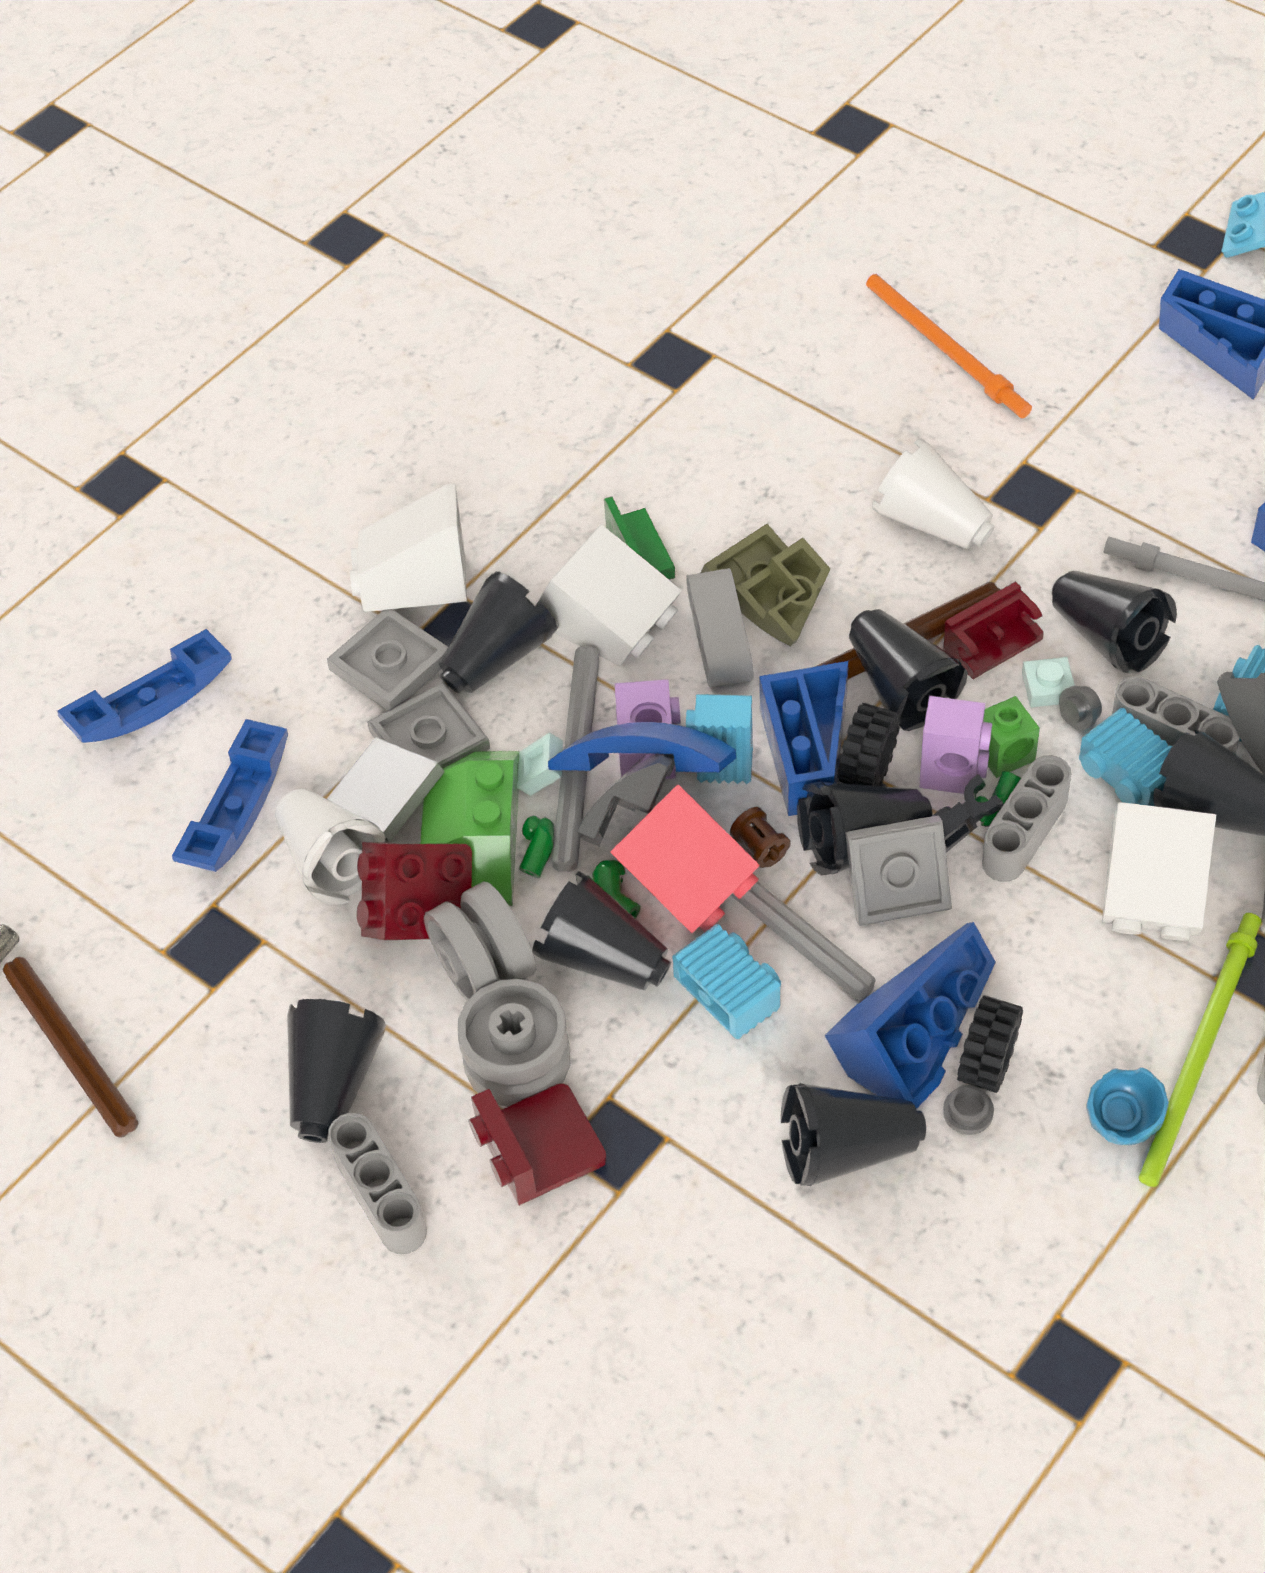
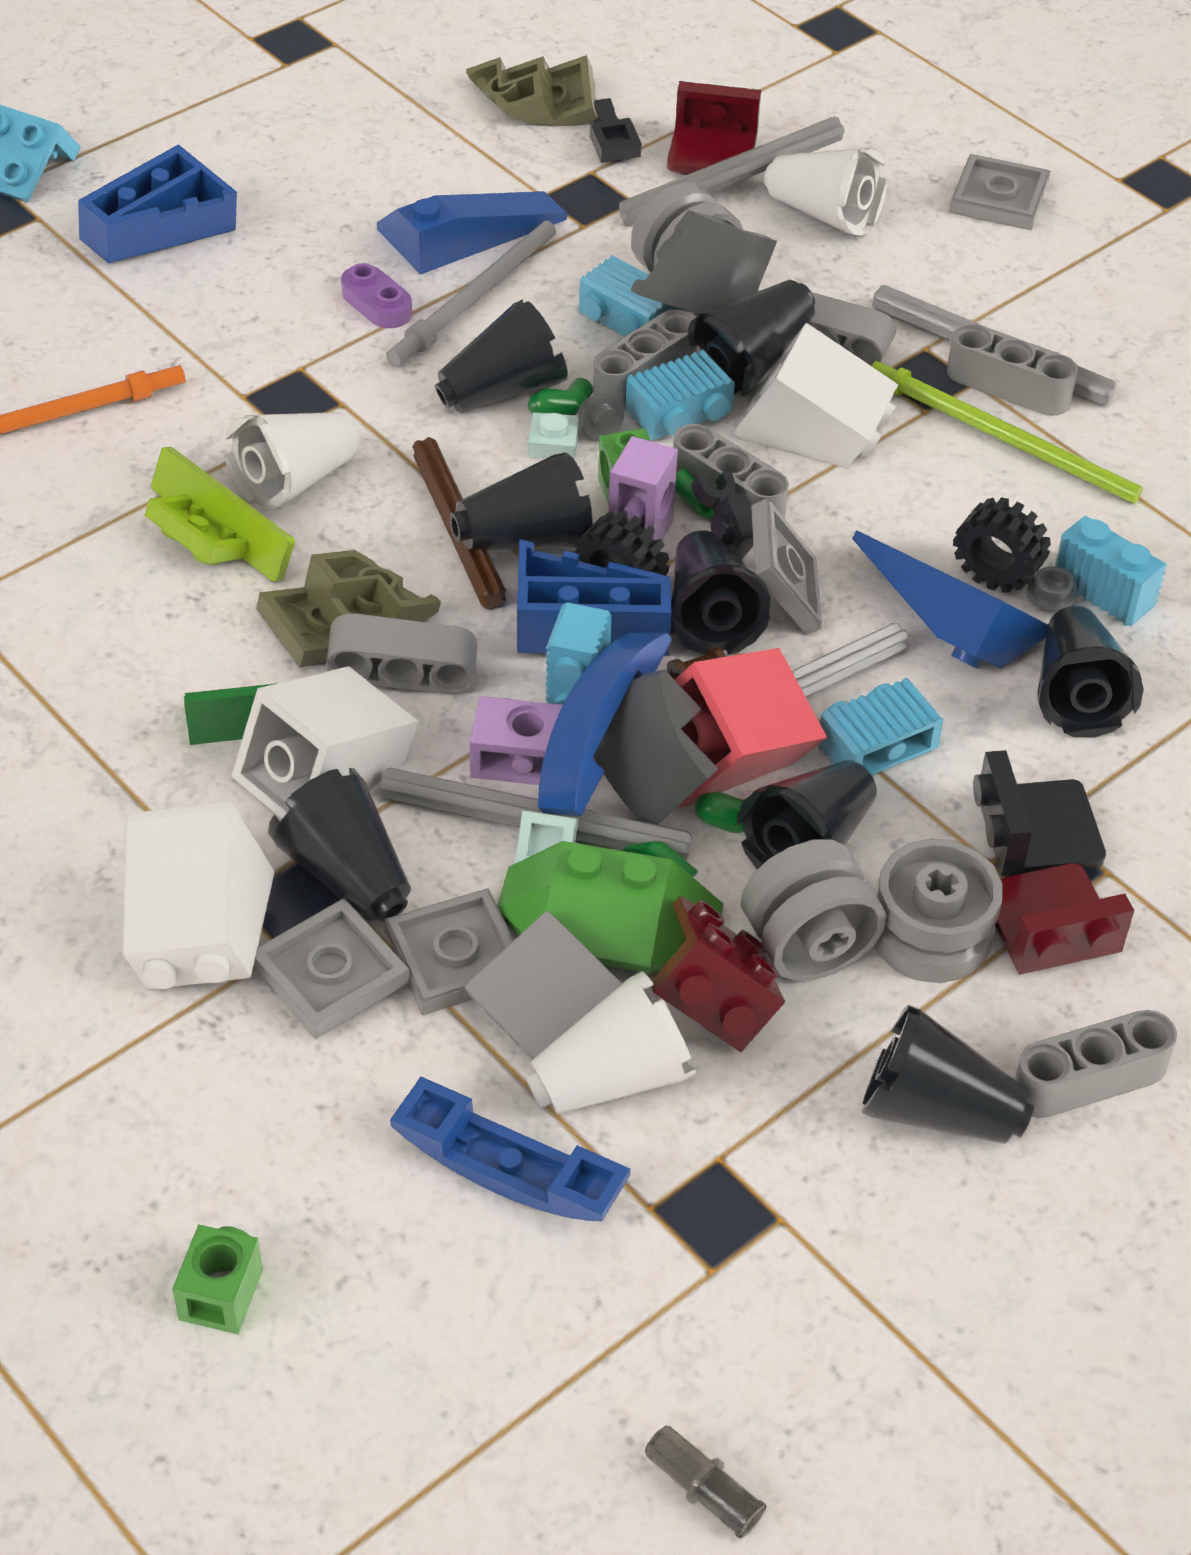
camera: 85 degrees left, 5 degrees down
(71, 1047) = (844, 1380): reddish brown axle -> none
(110, 658) = (223, 1300): none -> bright green brick
(151, 696) = (291, 1245): blue slope -> none
(646, 1114) = (1037, 821): none -> black bracket
(834, 467) = (213, 519): none -> lime bracket
(993, 630) = (474, 450): dark red hinge -> none
(999, 1149) = (1111, 570): none -> medium azure brick
(1090, 673) = (561, 401): none -> green arm
(1127, 1106) = (1074, 478): dark azure hair -> none
(1201, 509) = (376, 296): none -> medium lavender plate

